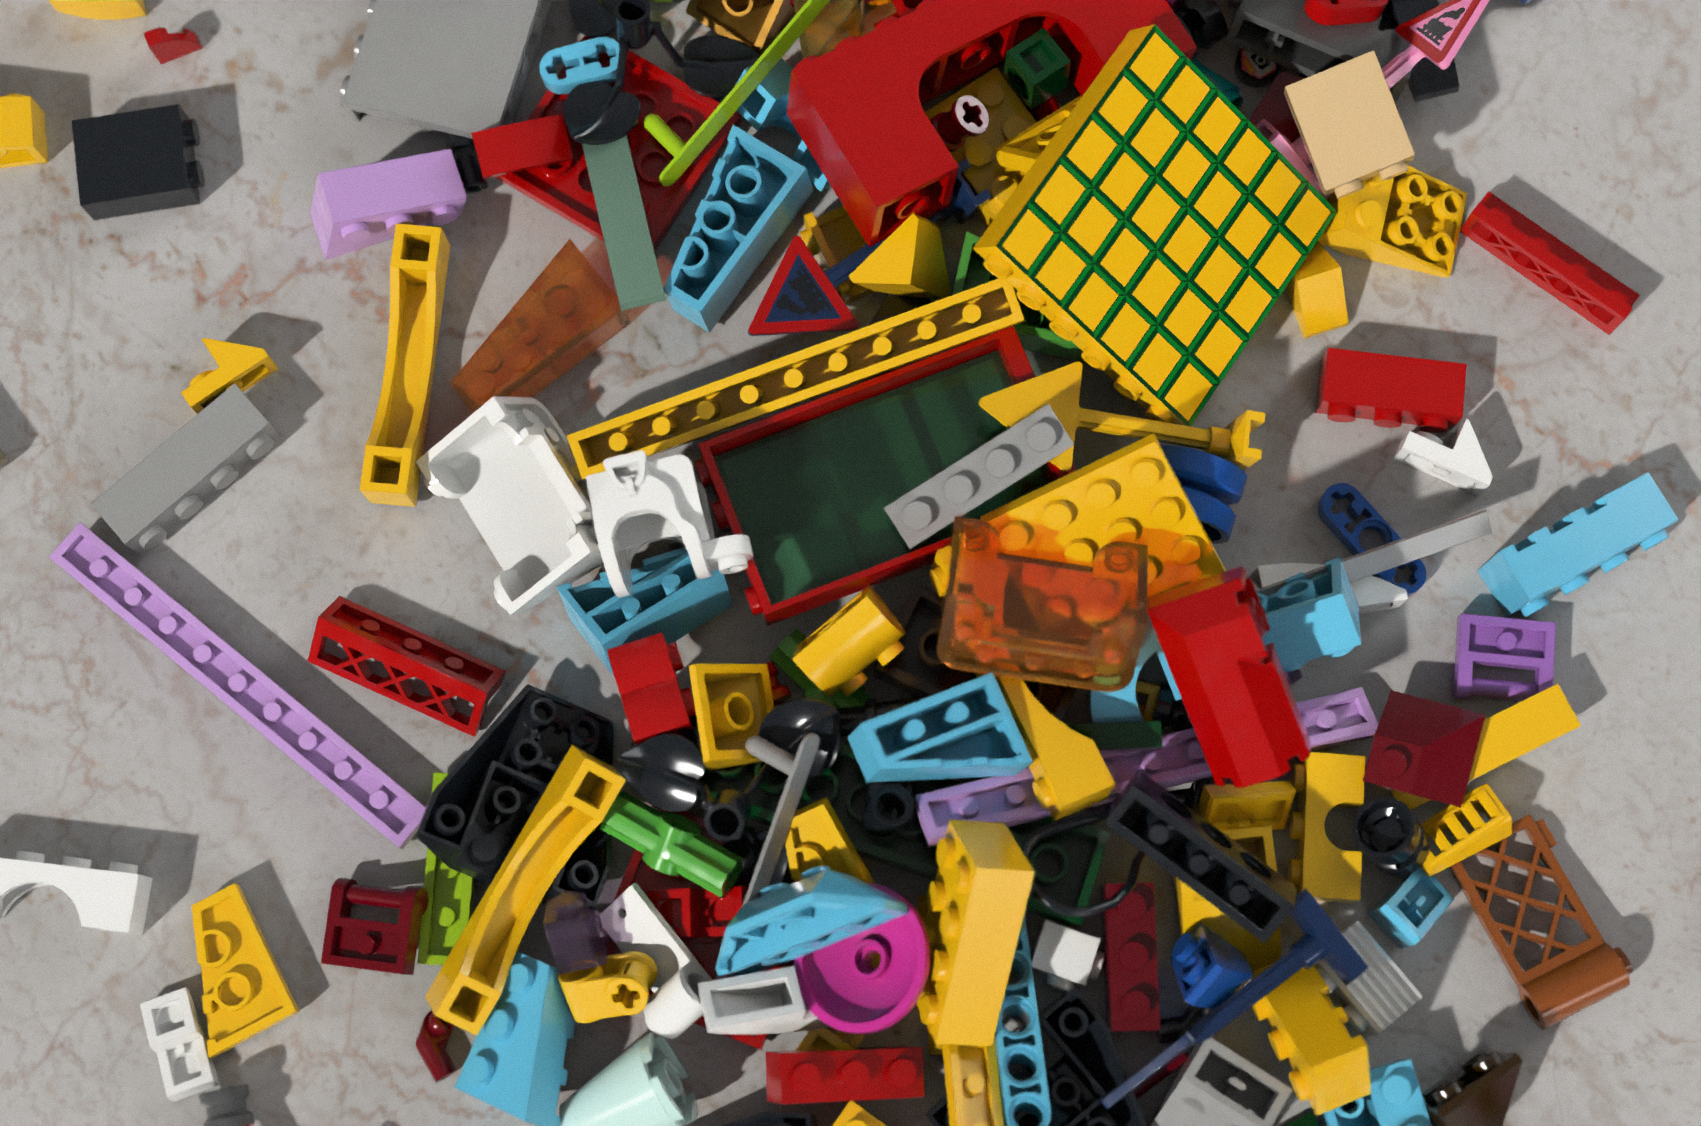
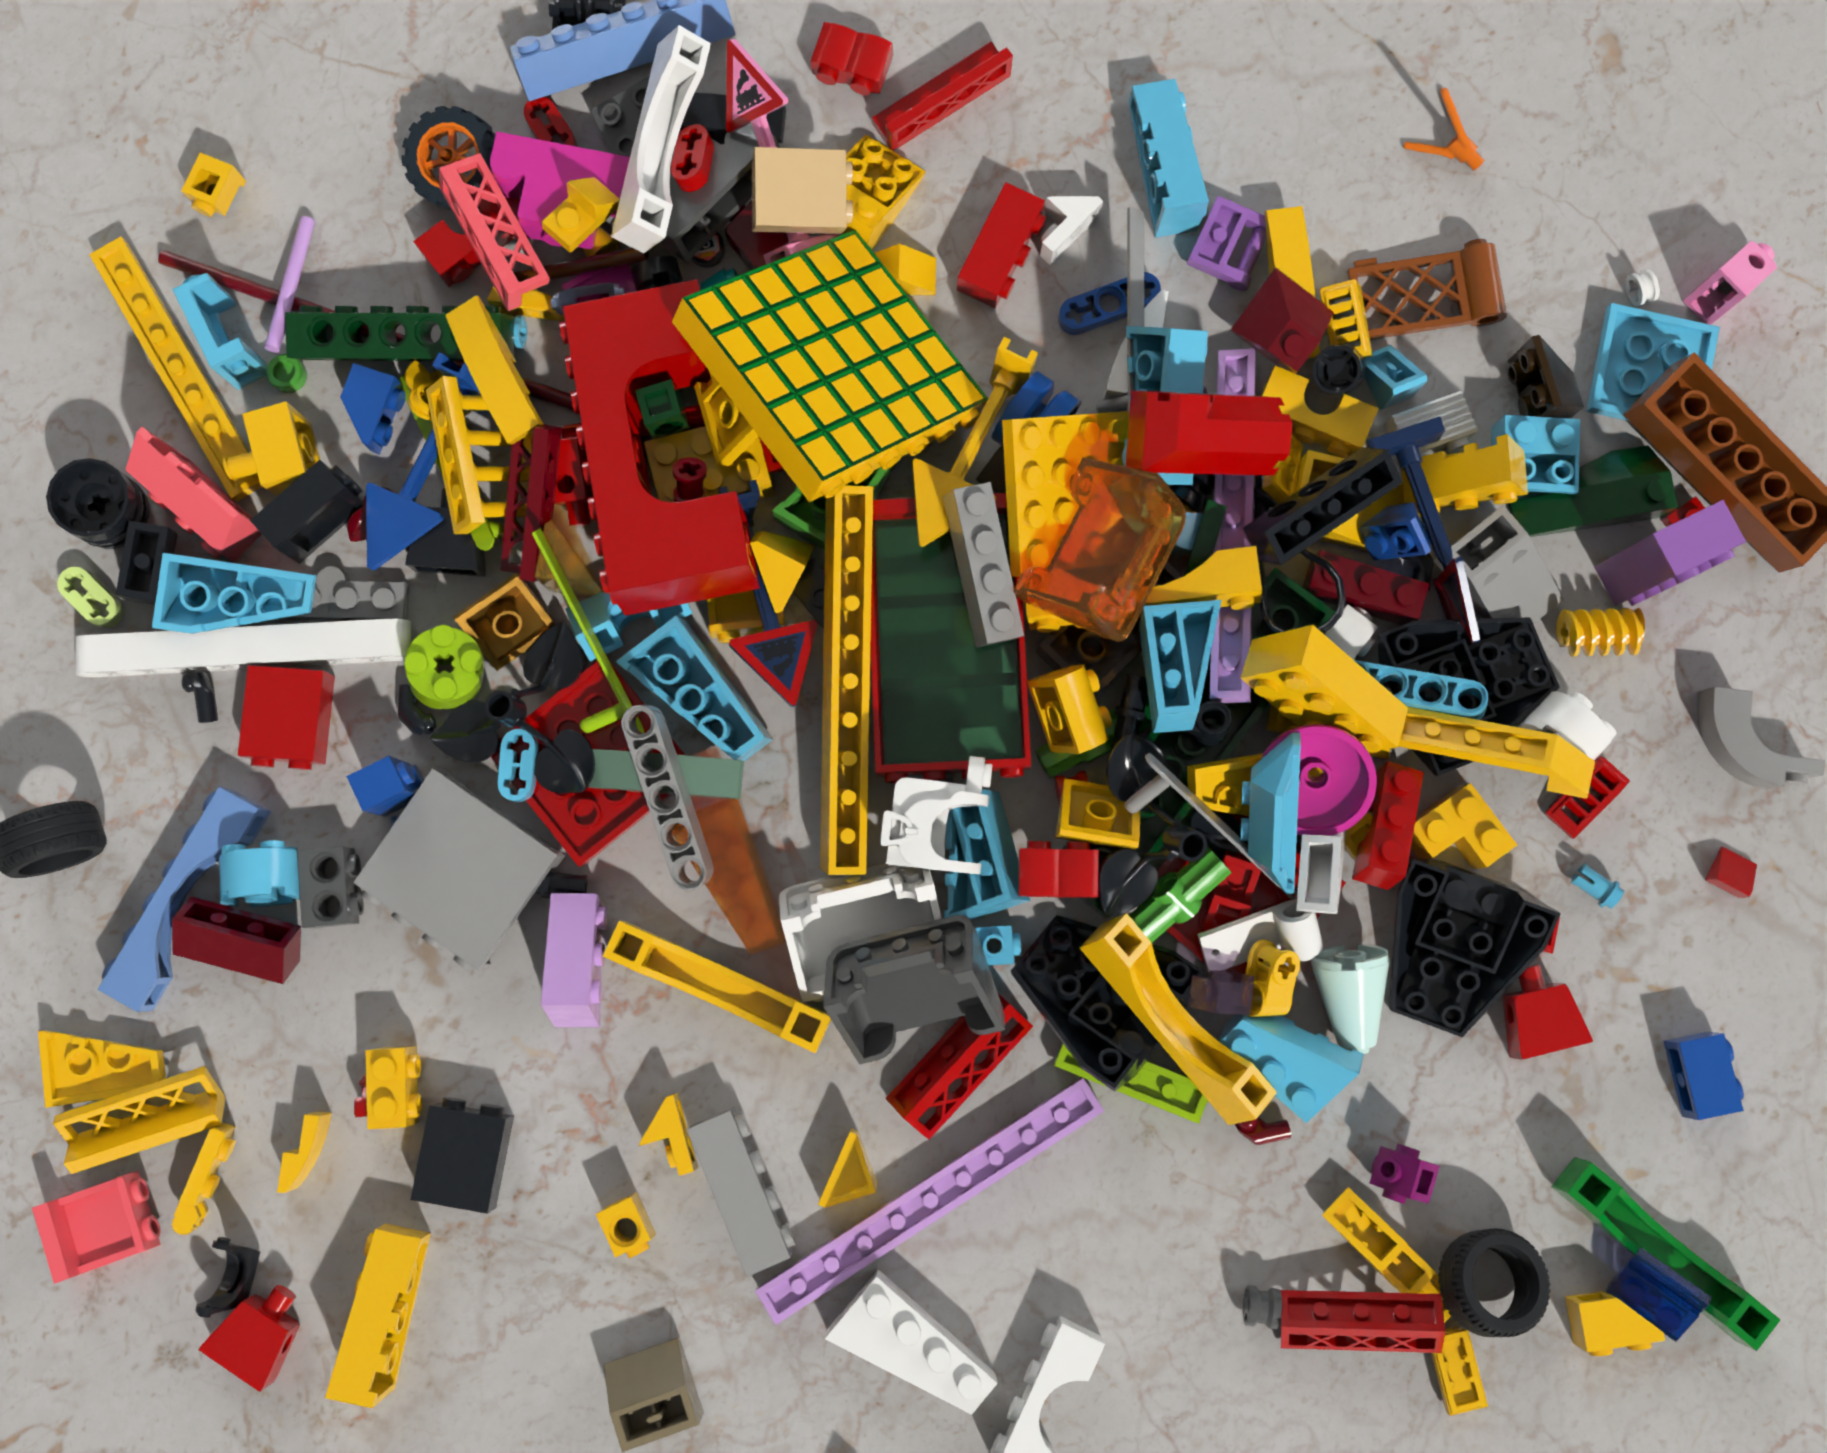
camera: 75 degrees left, 5 degrees up
(68, 715) = (908, 1342): none -> white wedge
(106, 342) = (633, 1209): none -> yellow brick
(180, 1044) = (1198, 1330): white slope -> none
(189, 62) = (393, 1087): none -> yellow brick
(238, 972) = (1158, 1267): yellow wing -> none
(242, 583) = (851, 1175): none -> yellow slope
(369, 942) = (1171, 1155): dark red plate -> none
(473, 565) = (910, 982): none -> dark grey windscreen
(522, 146) = (571, 834): red slope -> none
(543, 636) = (1009, 942): none -> medium azure brick
(602, 204) = (653, 782): none -> light grey beam
(1549, 143) = (851, 58): none -> red brick

